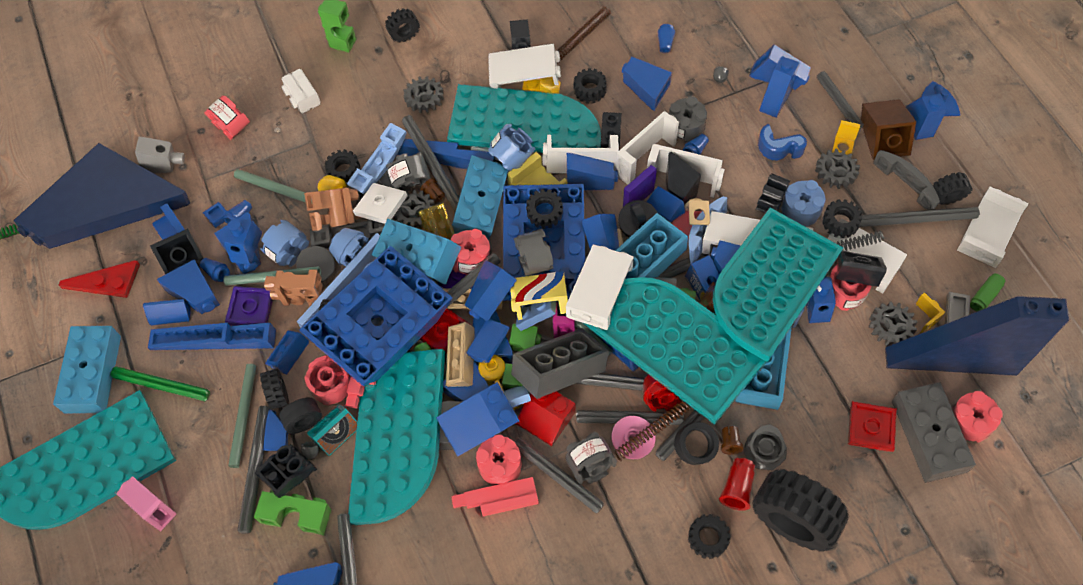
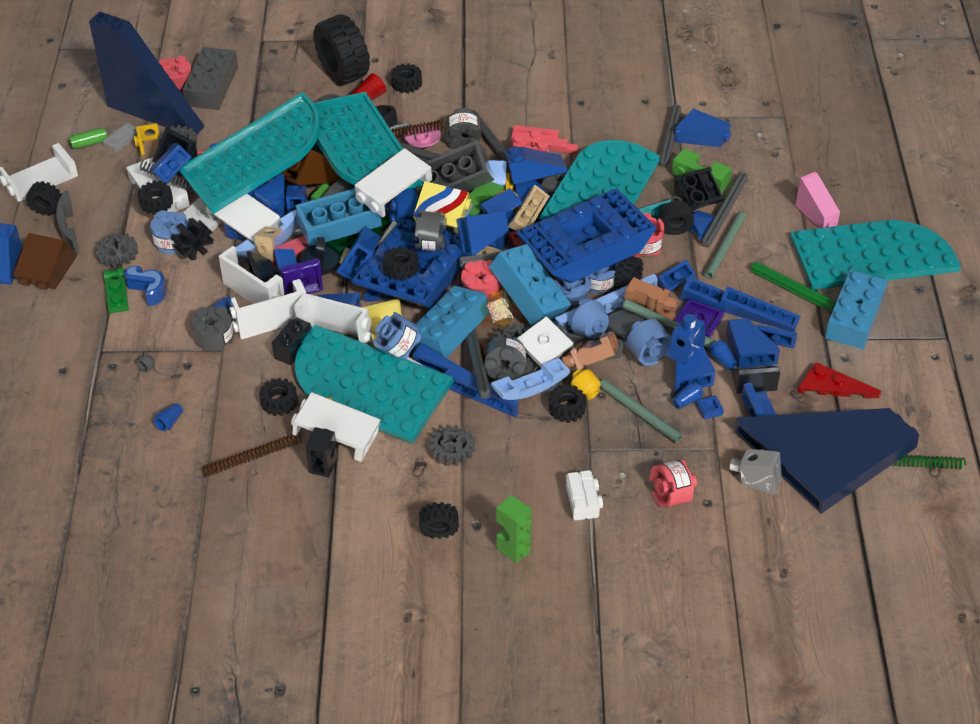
camera: 160 degrees left, 15 degrees down
(274, 388) = (692, 240): black tyre -> none
(646, 81) = (220, 378): blue slope -> none
(764, 67) = (90, 342): blue slope -> none
(779, 86) = (106, 319): blue slope -> none
(795, 124) = (116, 291): none -> green plate
(838, 99) = (59, 305): dark grey axle -> none
(846, 134) = (81, 270): yellow bracket -> none
(852, 241) = (170, 163): none -> blue slope
(872, 426) = (247, 96): red plate -> none
(920, 216) = (98, 202): dark grey axle -> none

